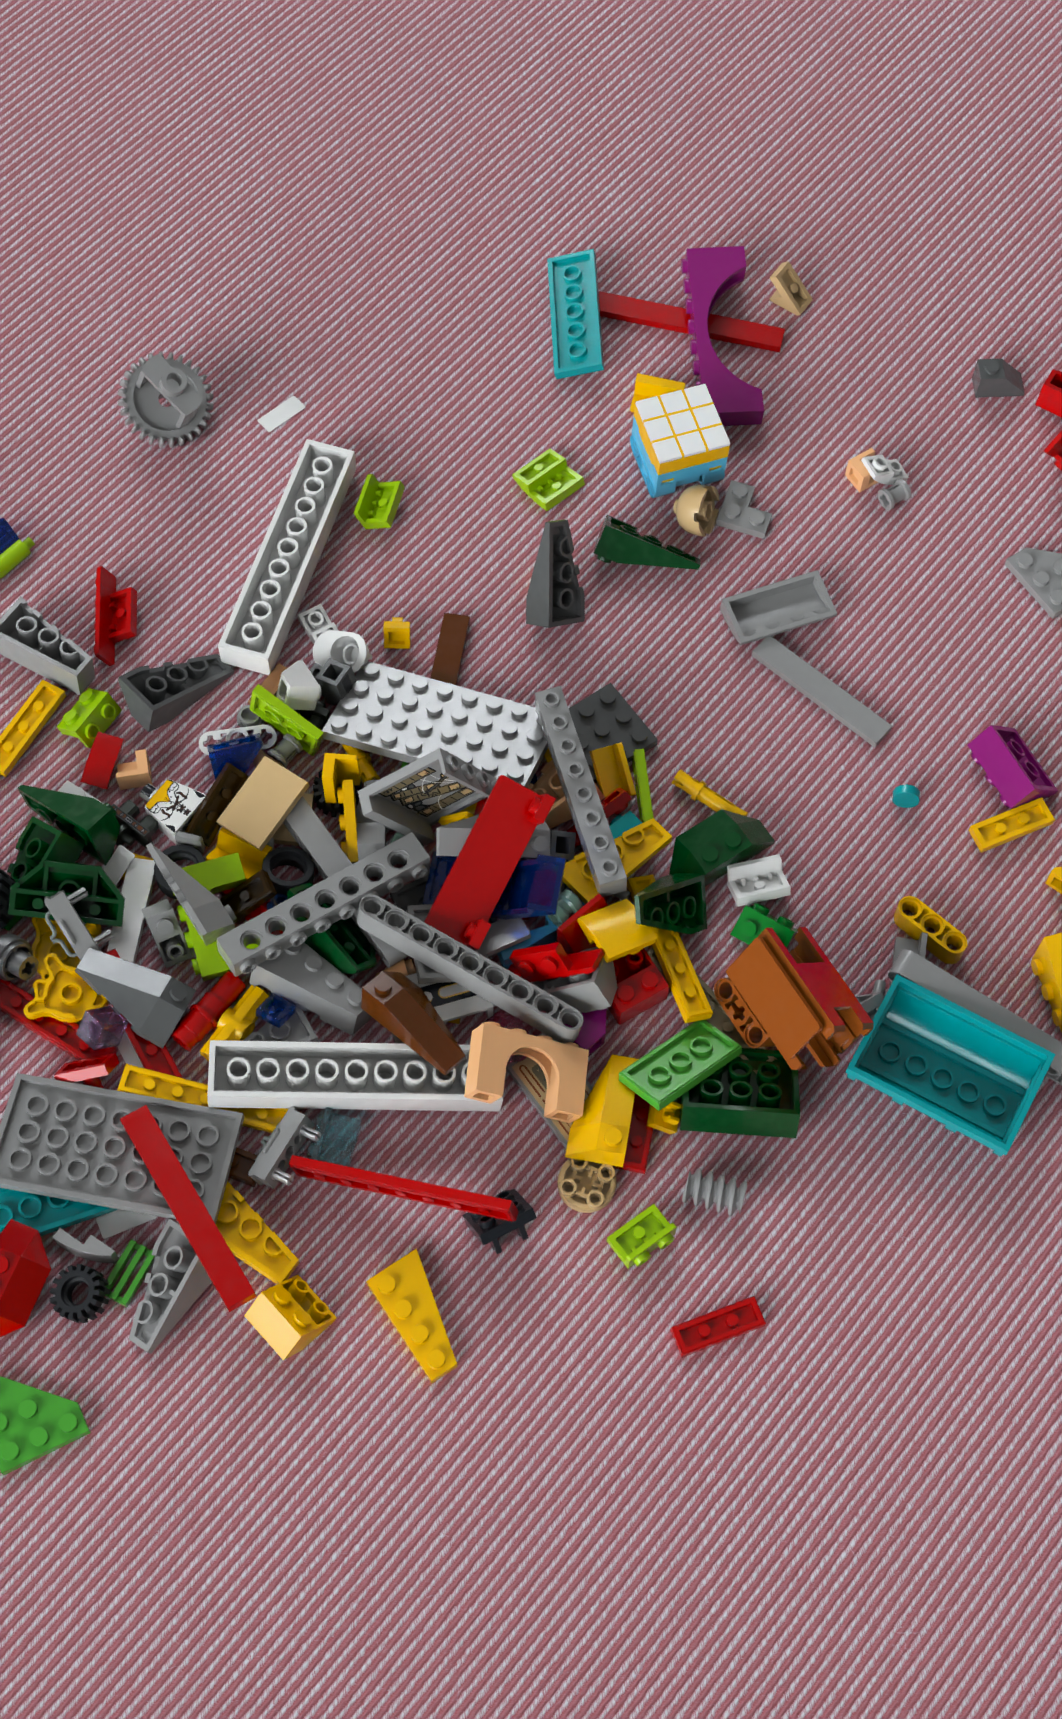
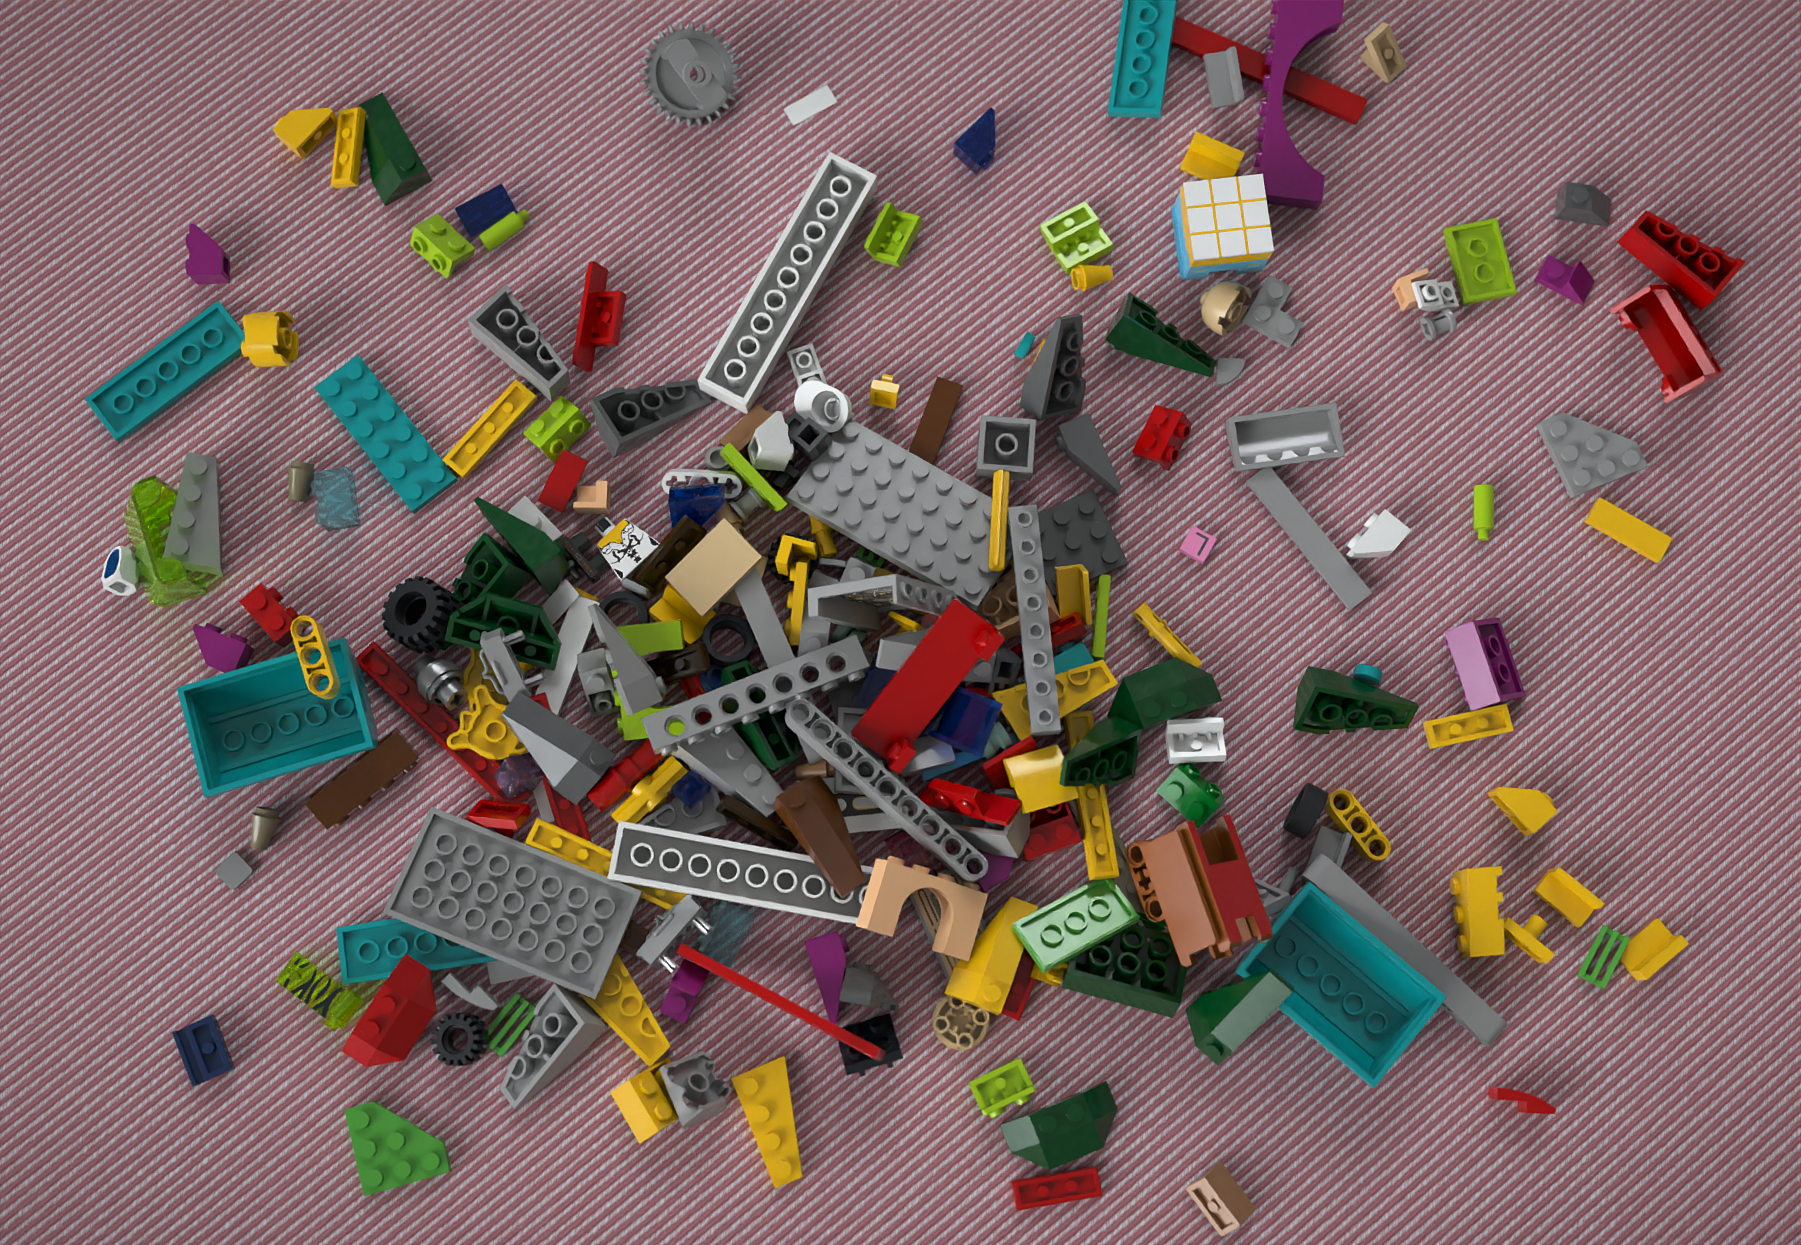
camera: 10 degrees right, 15 degrees up
(188, 1209) = (571, 984): red tile -> none
(303, 1207) = (684, 991): none -> magenta slope
(332, 1295) = (695, 1088): none -> light grey slope
(343, 1027) = (757, 823): none -> dark brown tile
(441, 417) = (978, 143): none -> clear blue slope
(443, 1150) = (829, 964): none -> magenta slope
(488, 1168) = (866, 988): none -> dark grey wedge
(520, 573) = (1024, 345): none -> teal tile
(521, 659) = (1006, 445): none -> light grey brick
(528, 714) = (999, 520): none -> yellow axle
(567, 507) = (1089, 276): none -> yellow cone
(598, 651) = (1086, 450): none -> dark grey slope
(653, 330) = (1224, 78): none -> light grey panel
(666, 627) = (1163, 436): none -> red bracket
(710, 1264) = (1063, 1128): none -> dark green wedge
(712, 564) = (1228, 370): none -> light grey tile
(714, 1191) = (1082, 1057): light grey piece -> none
(719, 714) = (1197, 544): none -> bright pink tile
(852, 1113) = (1231, 1014): none -> dark green wedge
(877, 922) = (1305, 810): none -> black tyre
(884, 1304) = (1221, 1199): none -> medium nougat panel
(886, 679) = (1380, 538): none -> white slope
(886, 825) = (1339, 702): none -> dark green wedge
(918, 440) = (1479, 261): none -> lime tile
(976, 639) = (1483, 510): none -> lime cylinder
(1001, 443) = (1566, 280): none -> magenta slope

